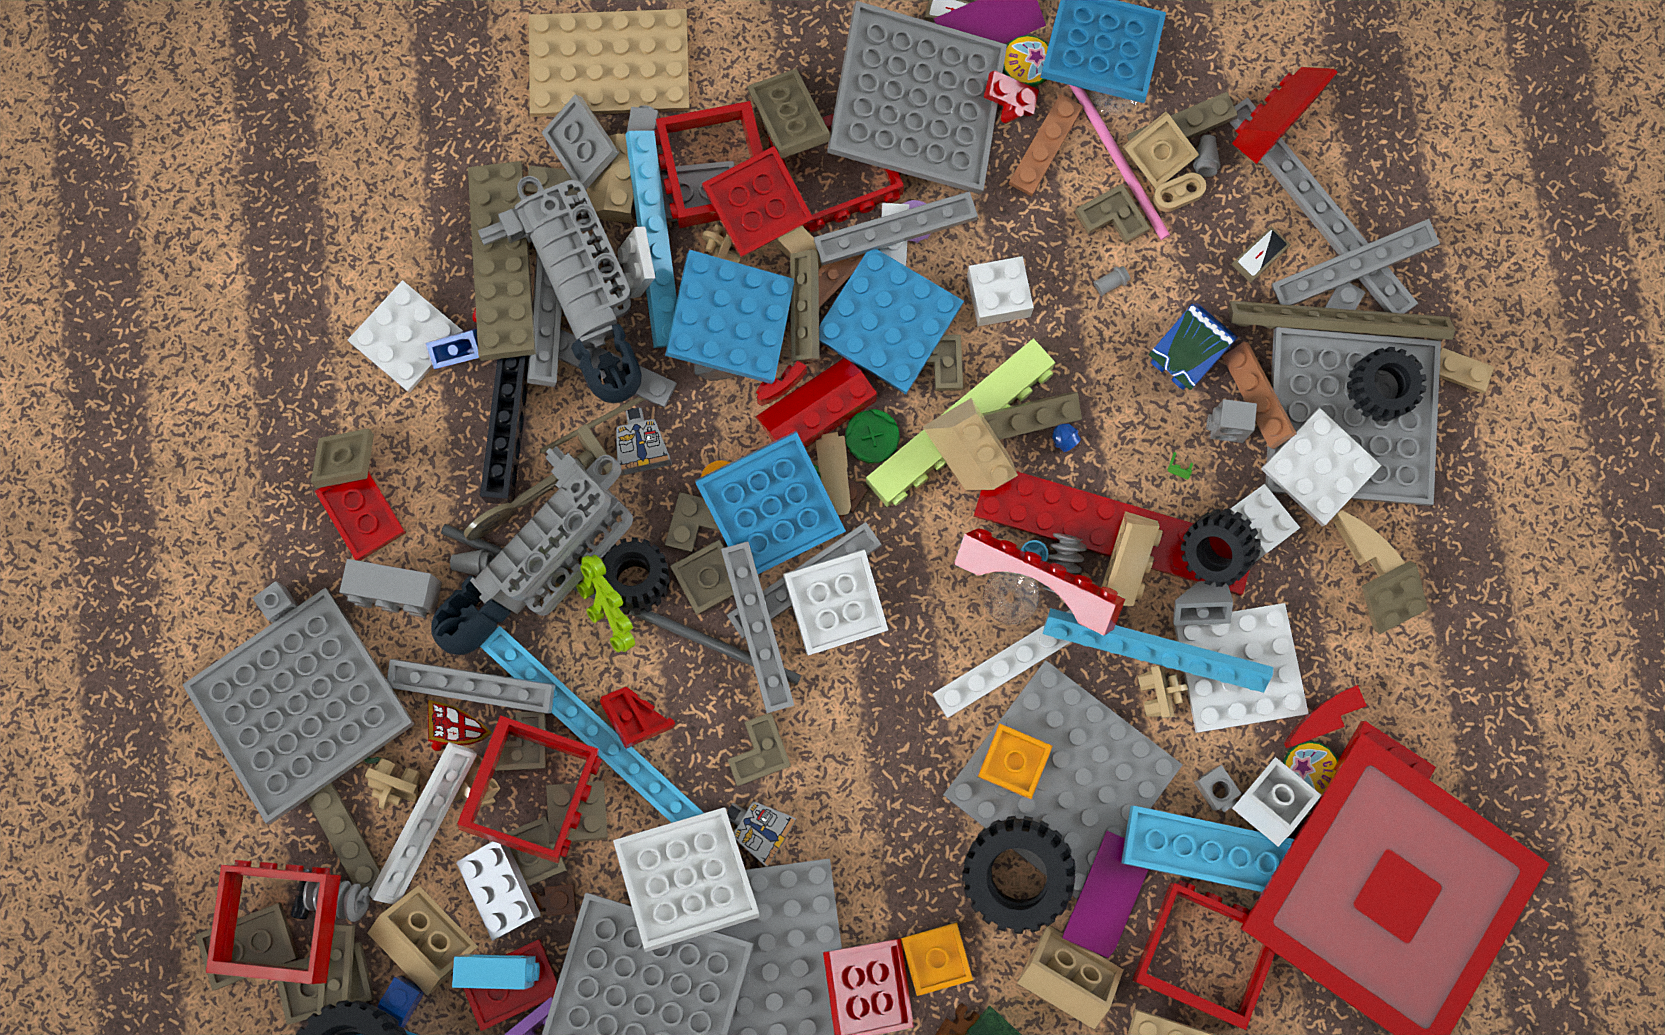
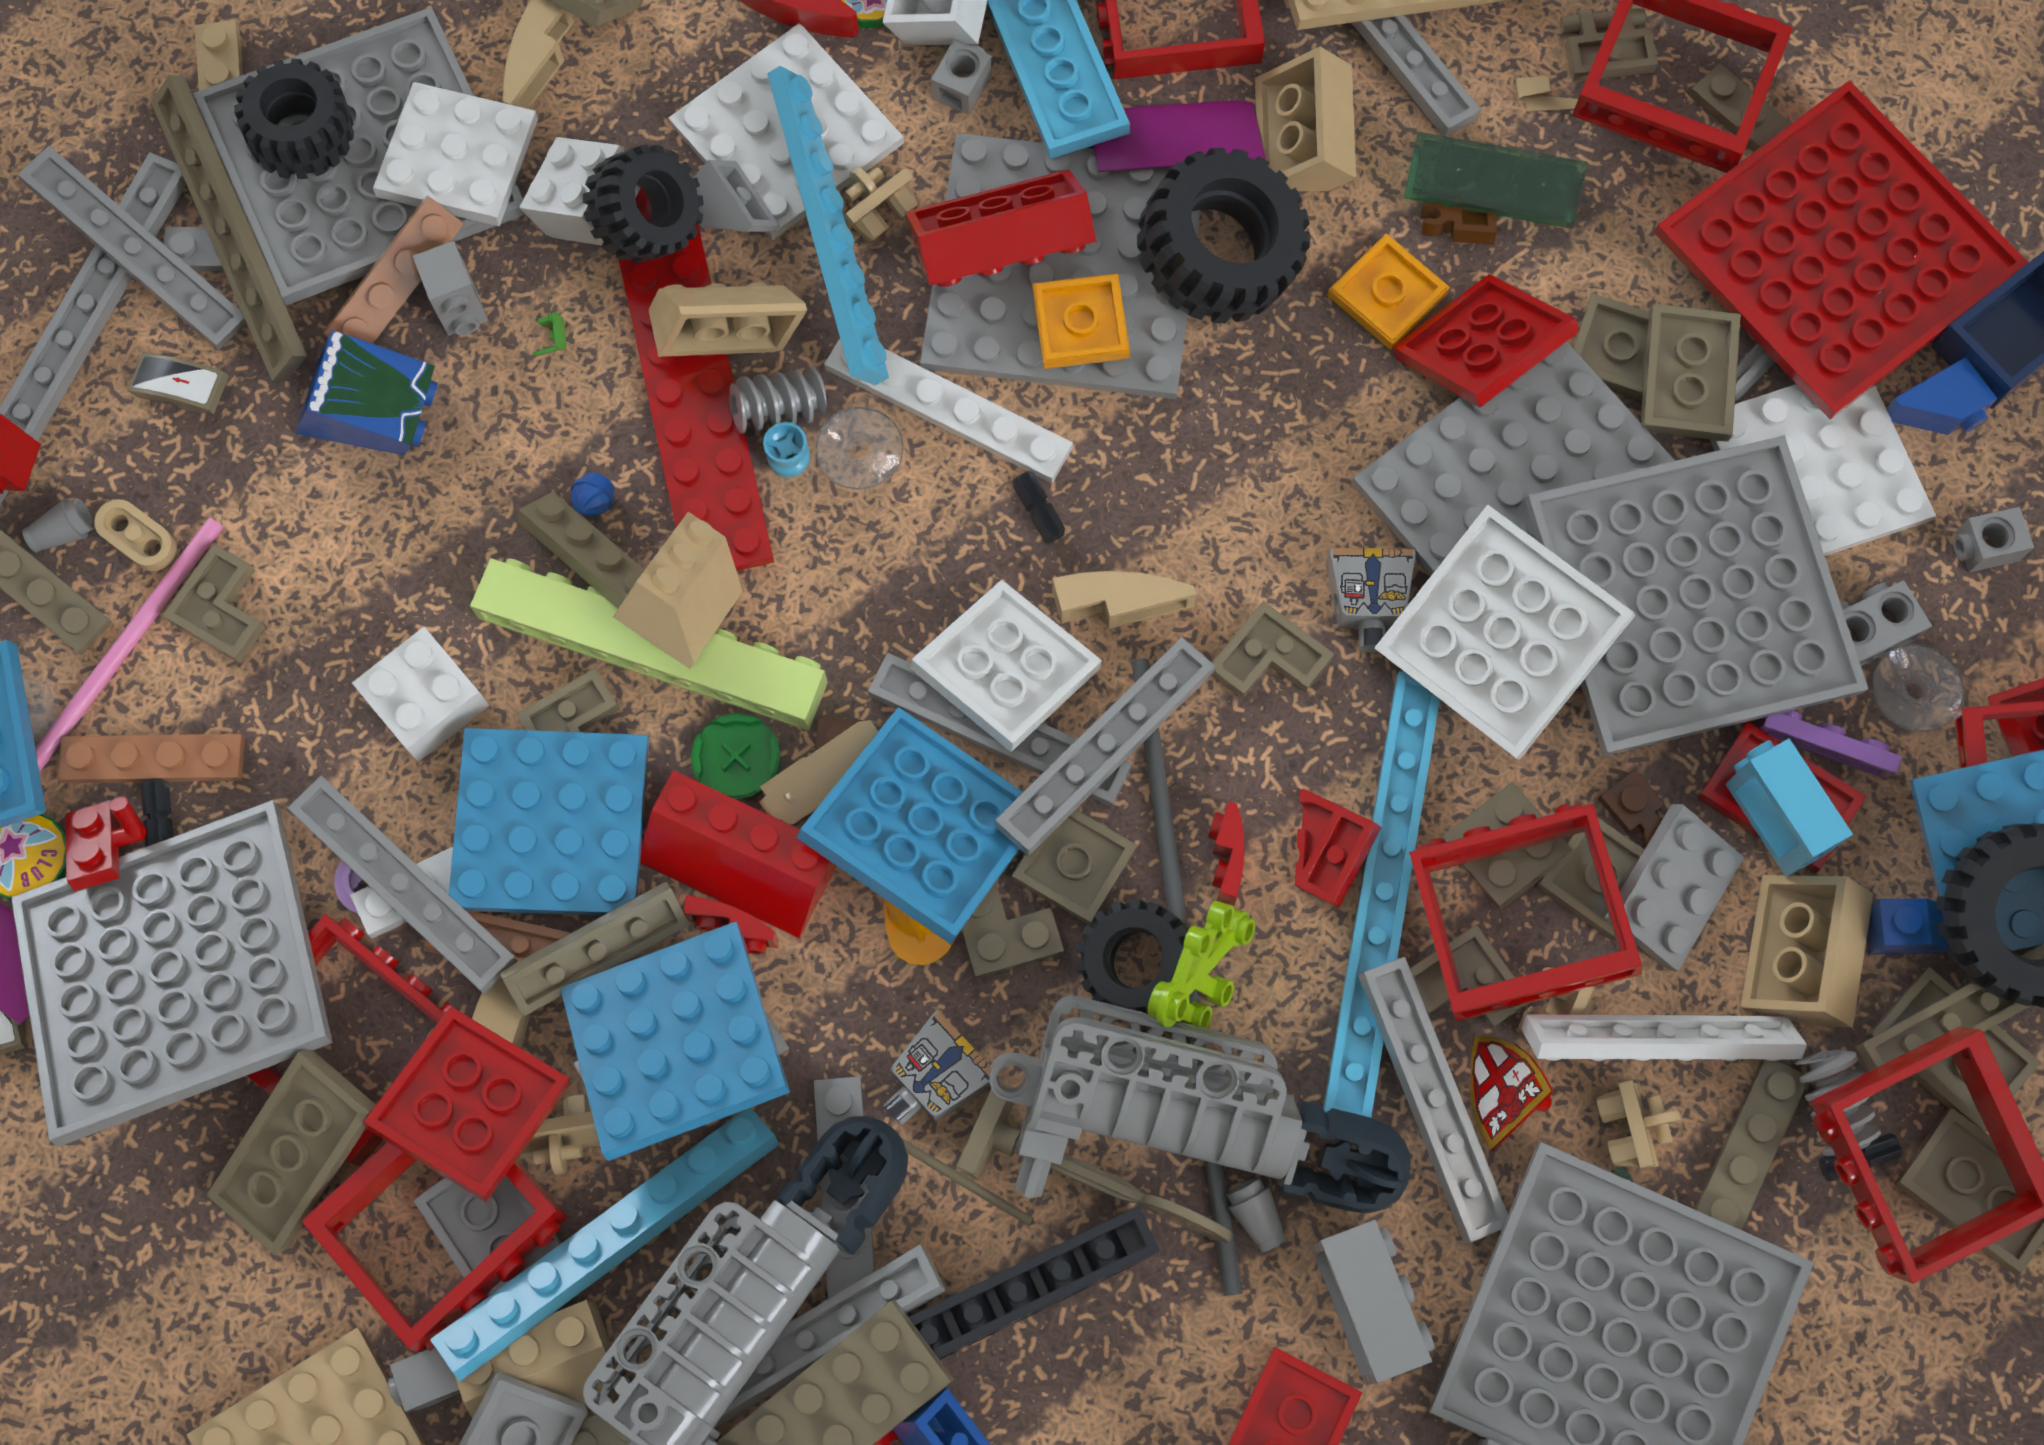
camera: 120 degrees left, 5 degrees down
(637, 261) = (654, 1241): white plate -> none
(670, 665) = (1229, 838): none -> red slope
(840, 687) = (1120, 596): none -> tan slope
(927, 677) = (1042, 513): none -> black piece
(1017, 135) = (156, 806): none -> black piece
(1090, 604) = (822, 497): arch -> none
(1100, 748) = (1001, 228): none -> red slope
(1112, 280) = (321, 556): light grey pin -> none
(1160, 150) = (82, 584): tan plate -> none

